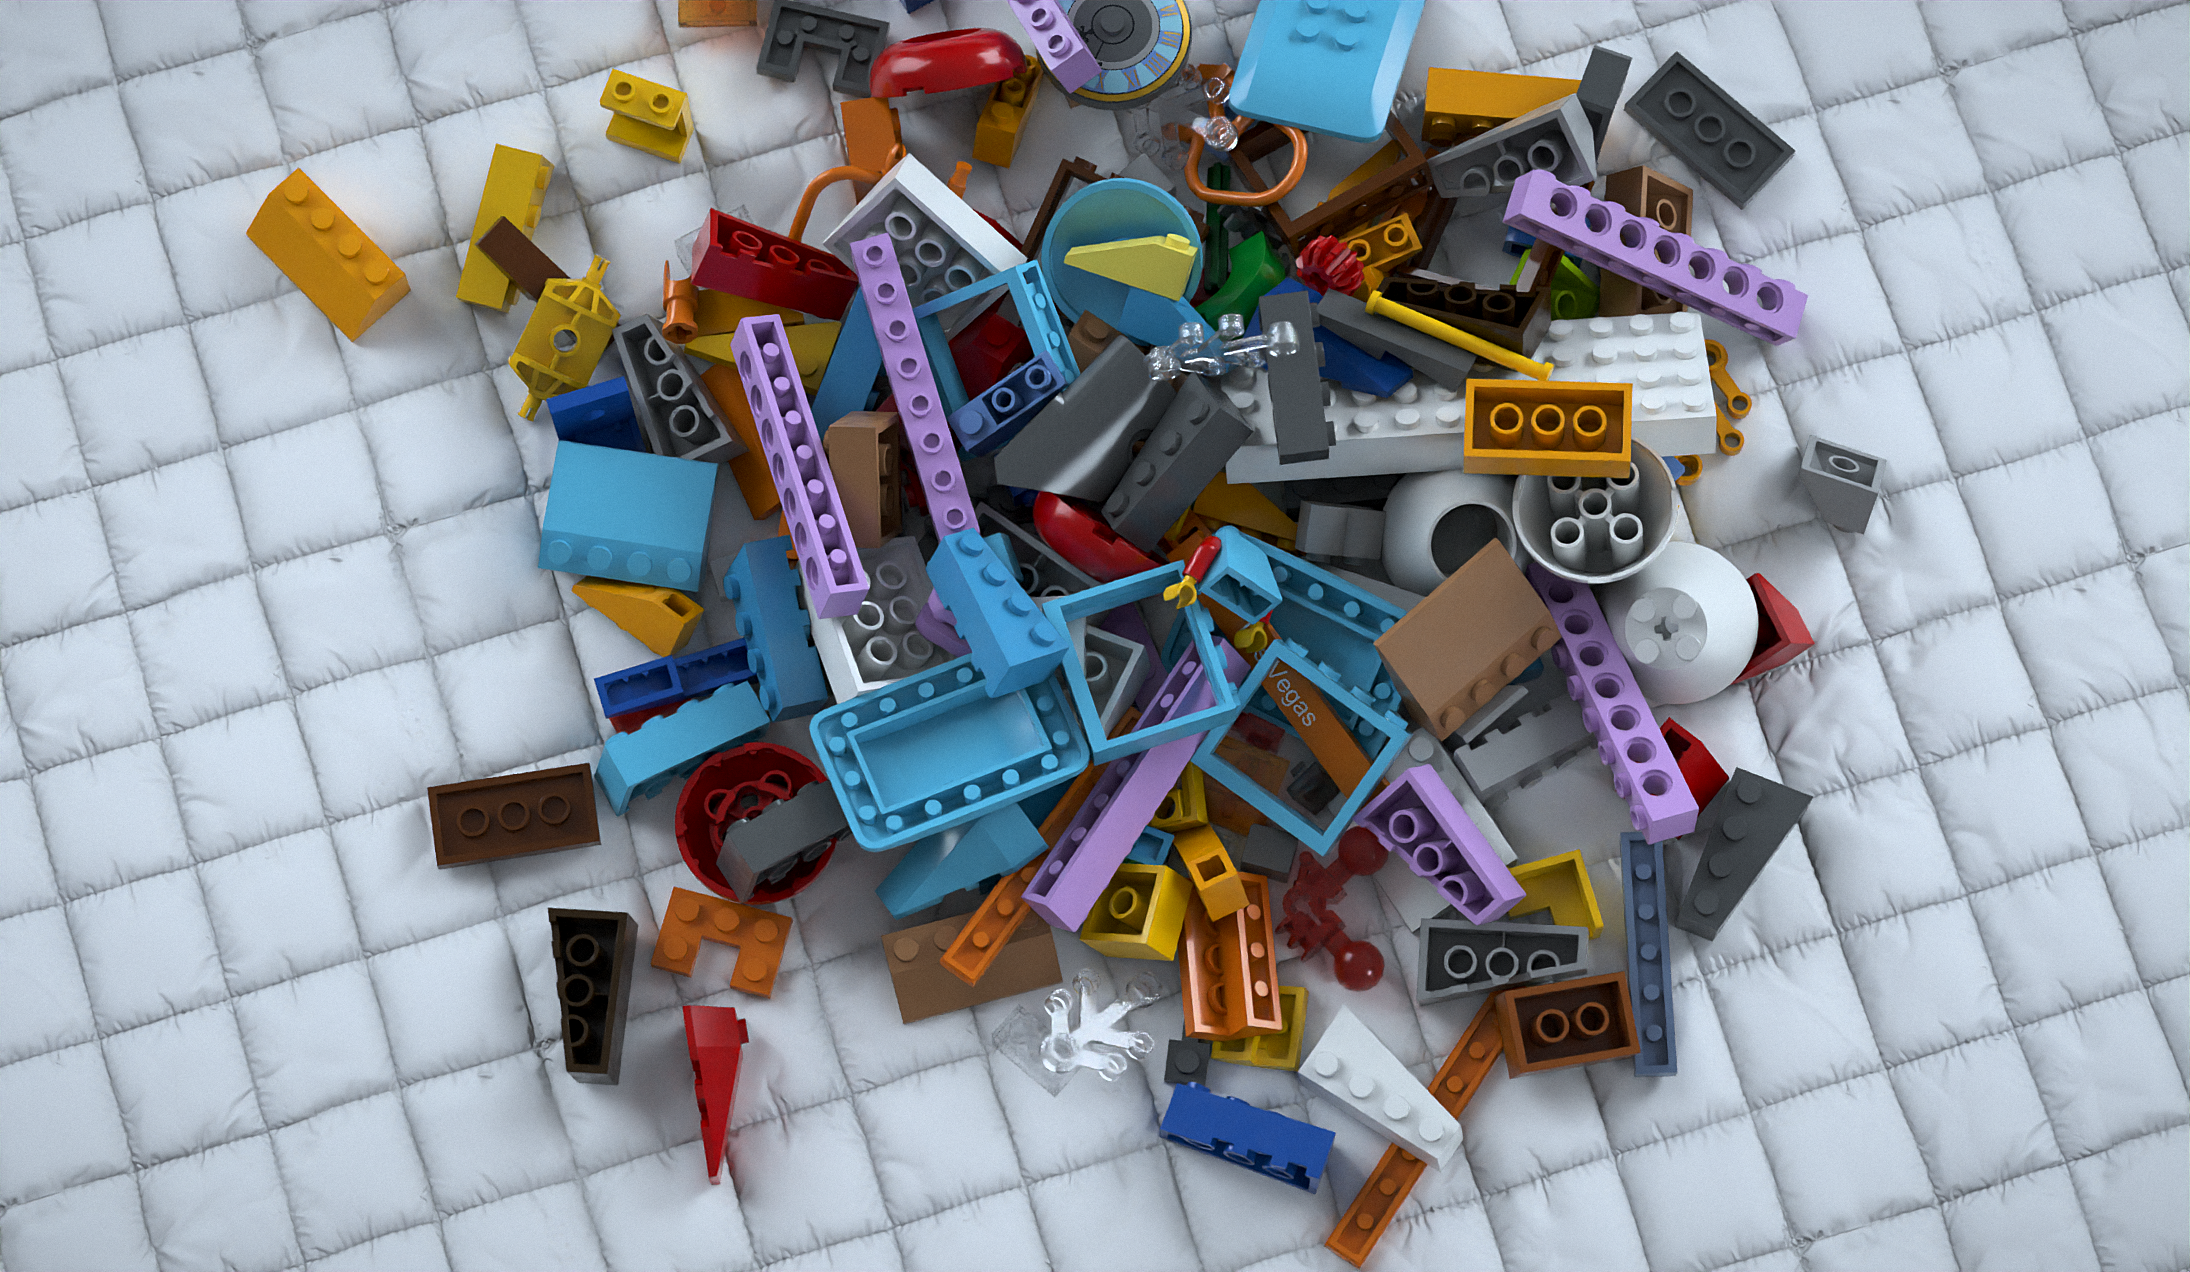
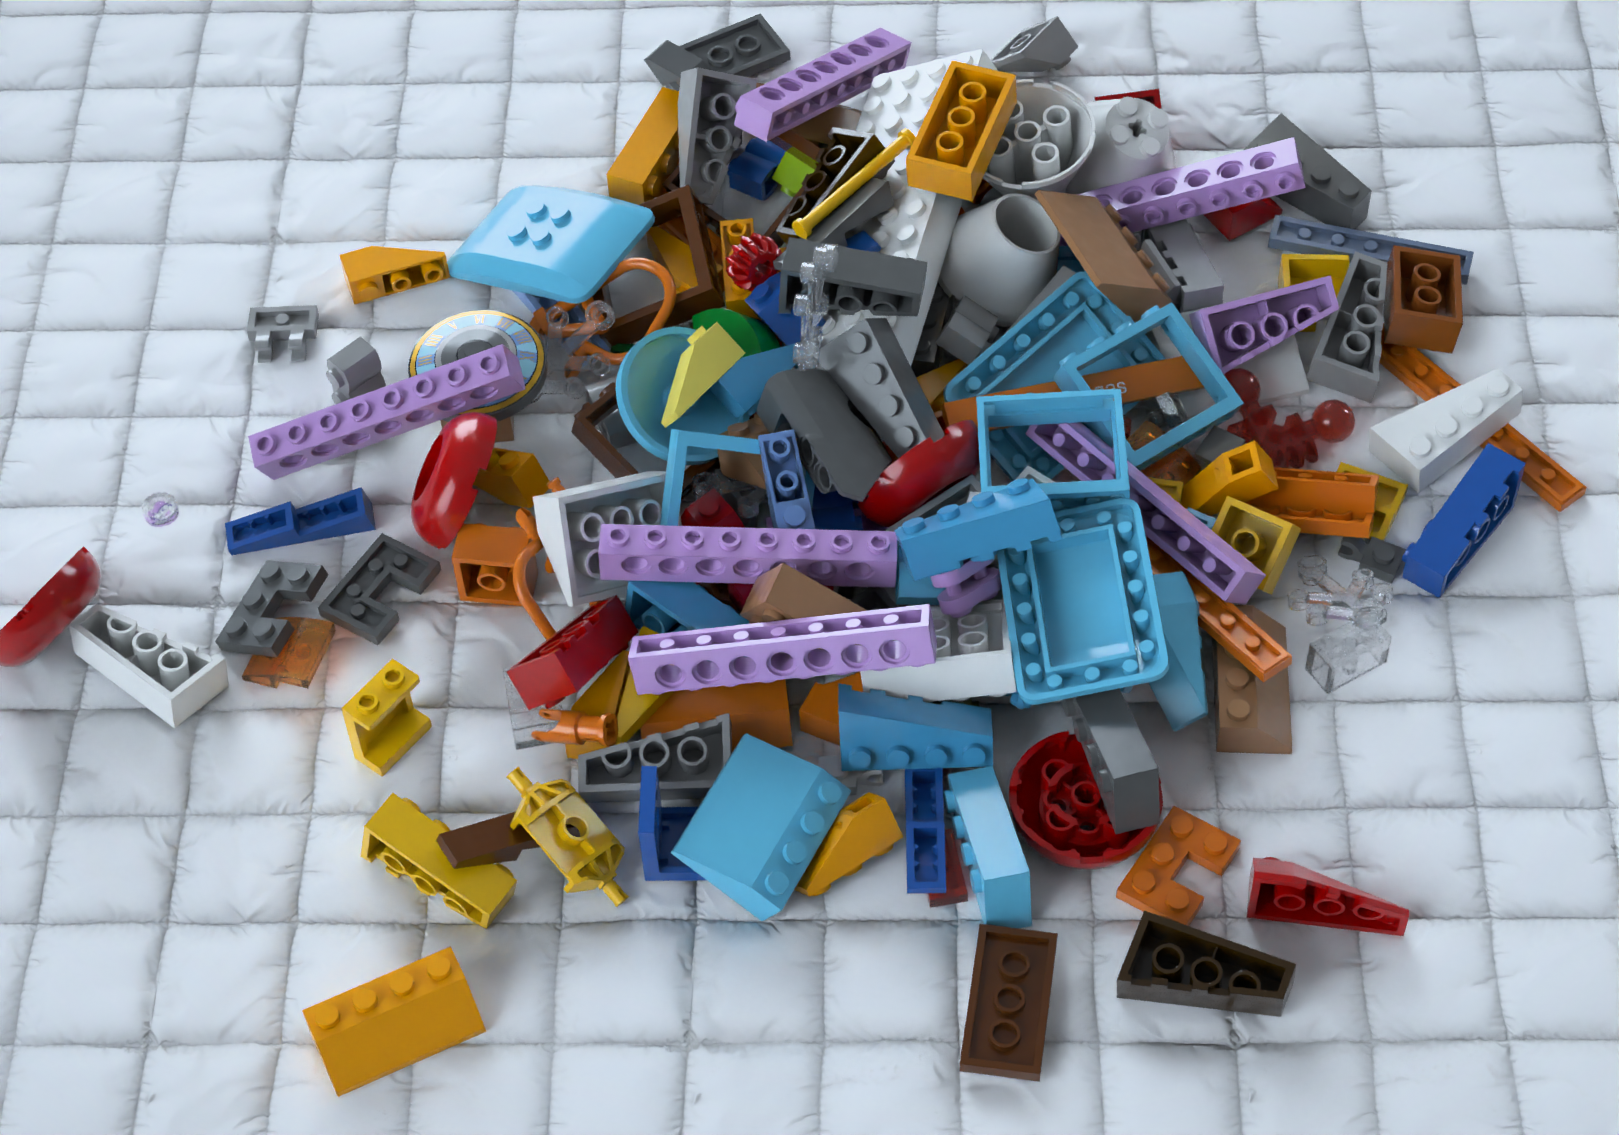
camera: 70 degrees left, 20 degrees down
(1234, 576) = (1000, 372): medium azure torso -> none

